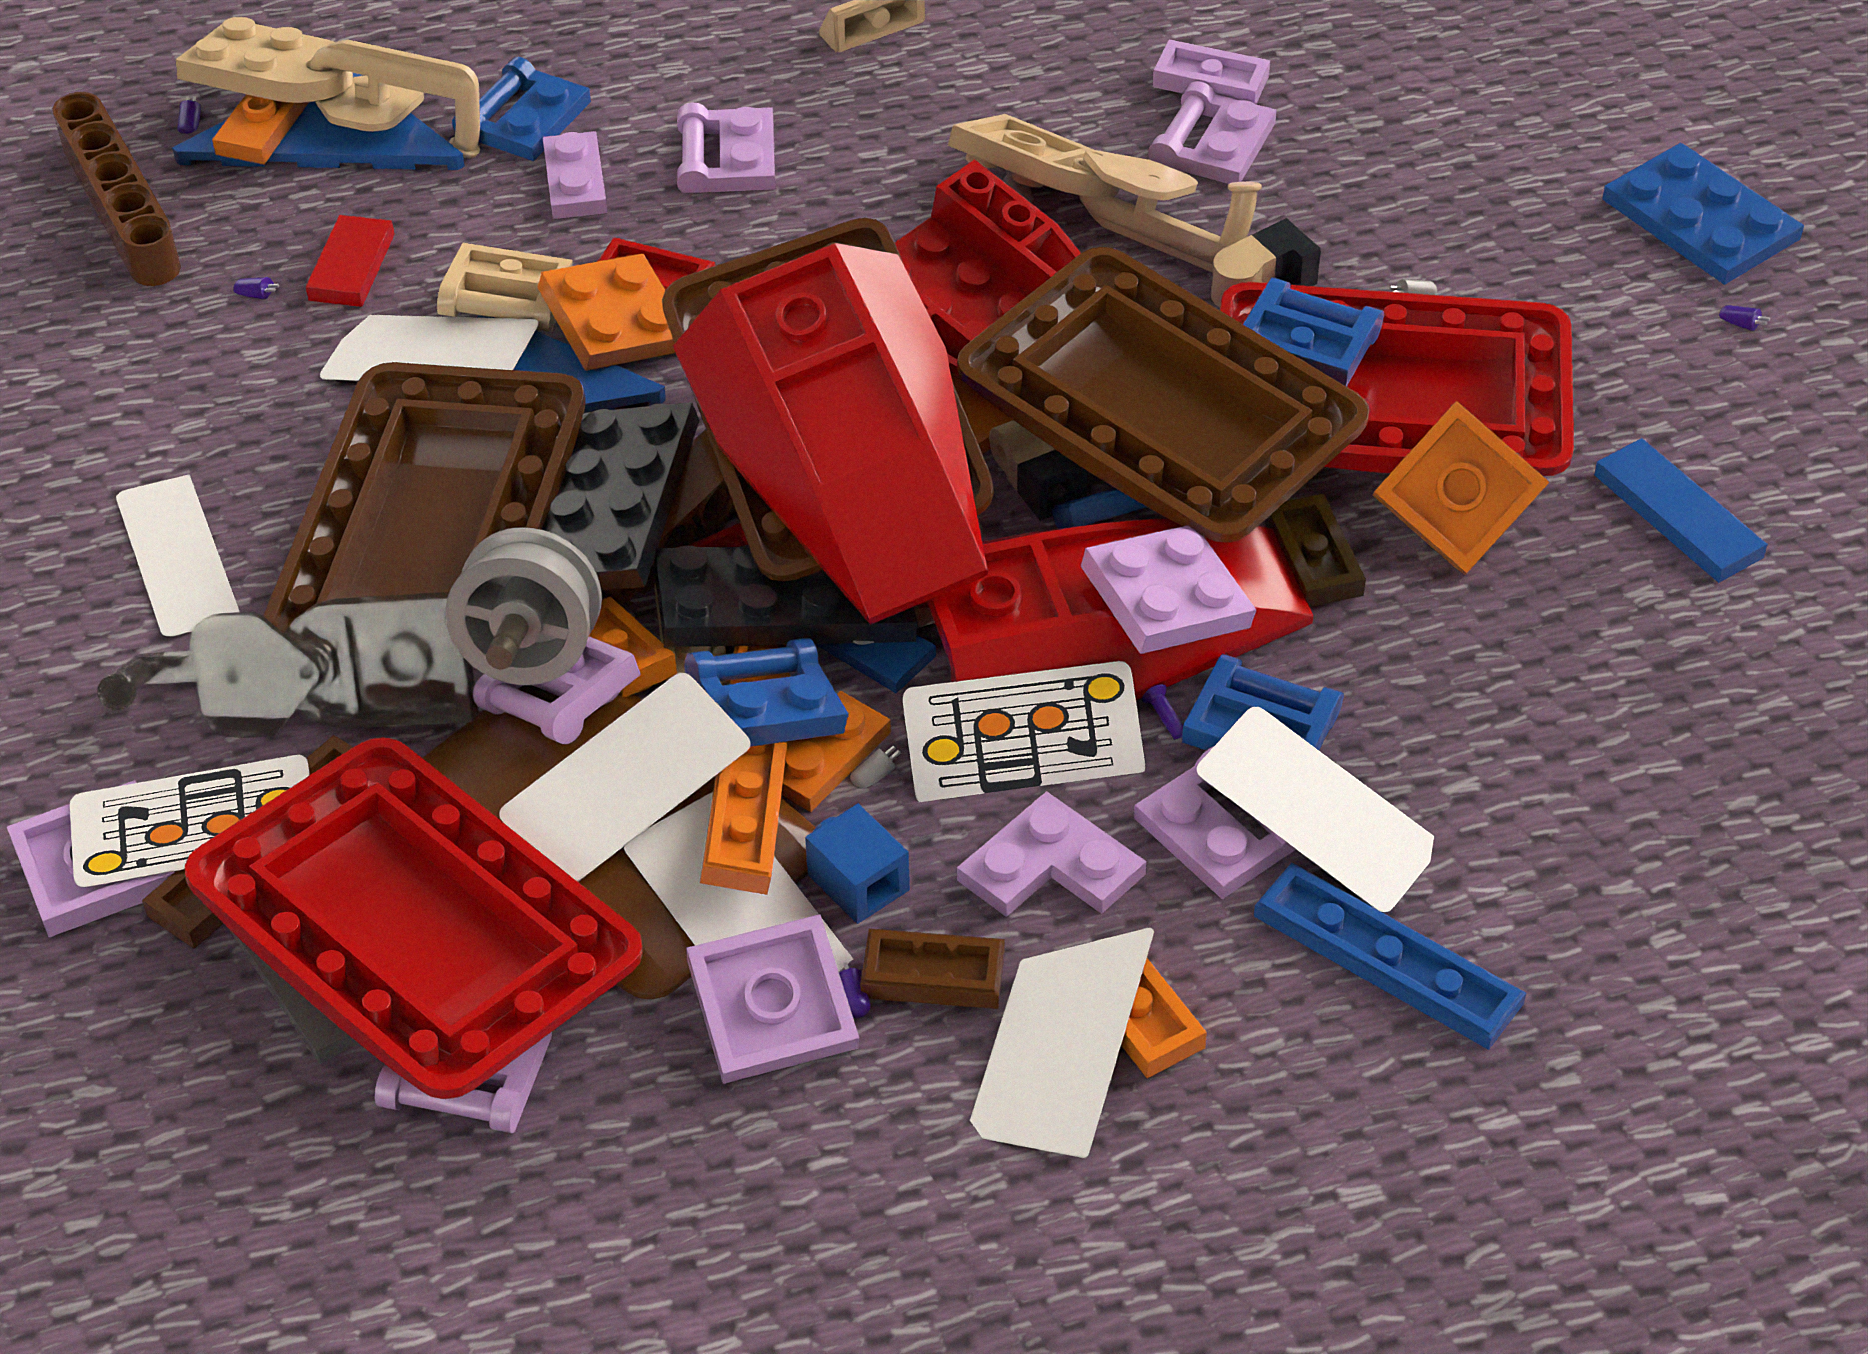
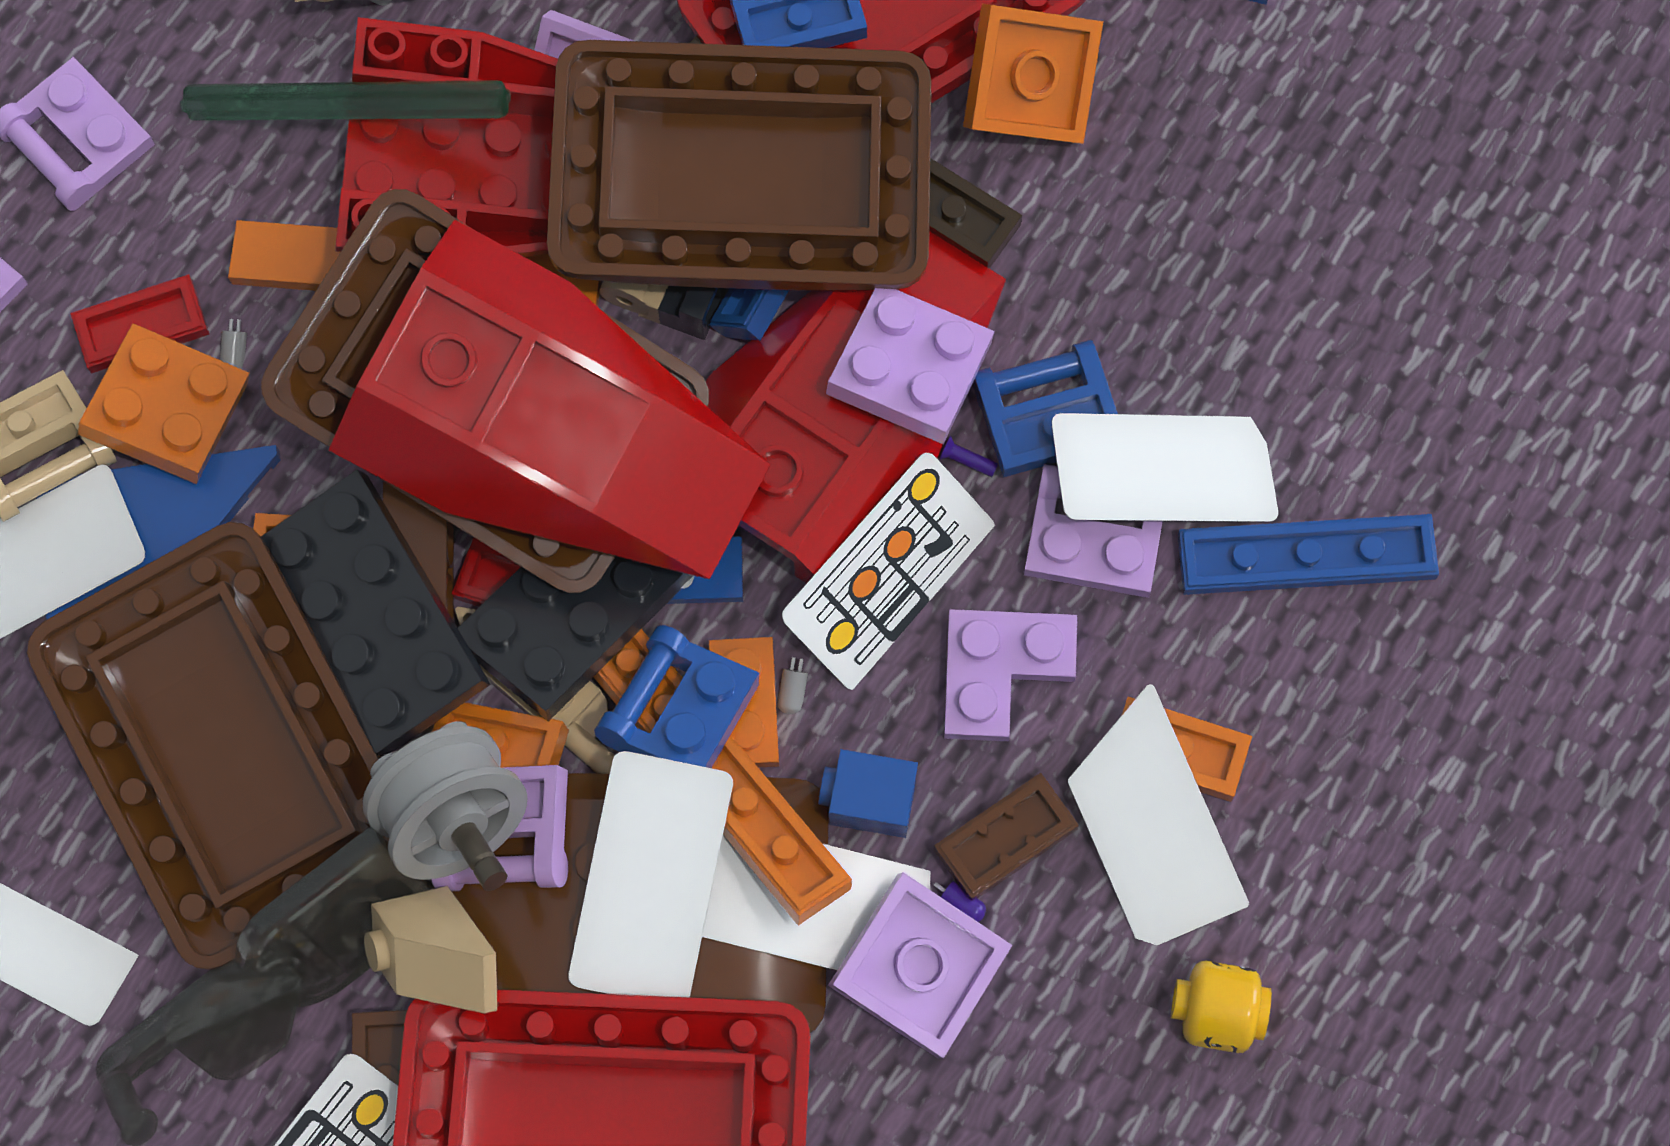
camera: 40 degrees left, 25 degrees up
(421, 712) = (433, 951): none -> tan slope
(923, 210) = (347, 100): none -> clear green axle
(987, 1207) = (1222, 1006): none -> yellow head

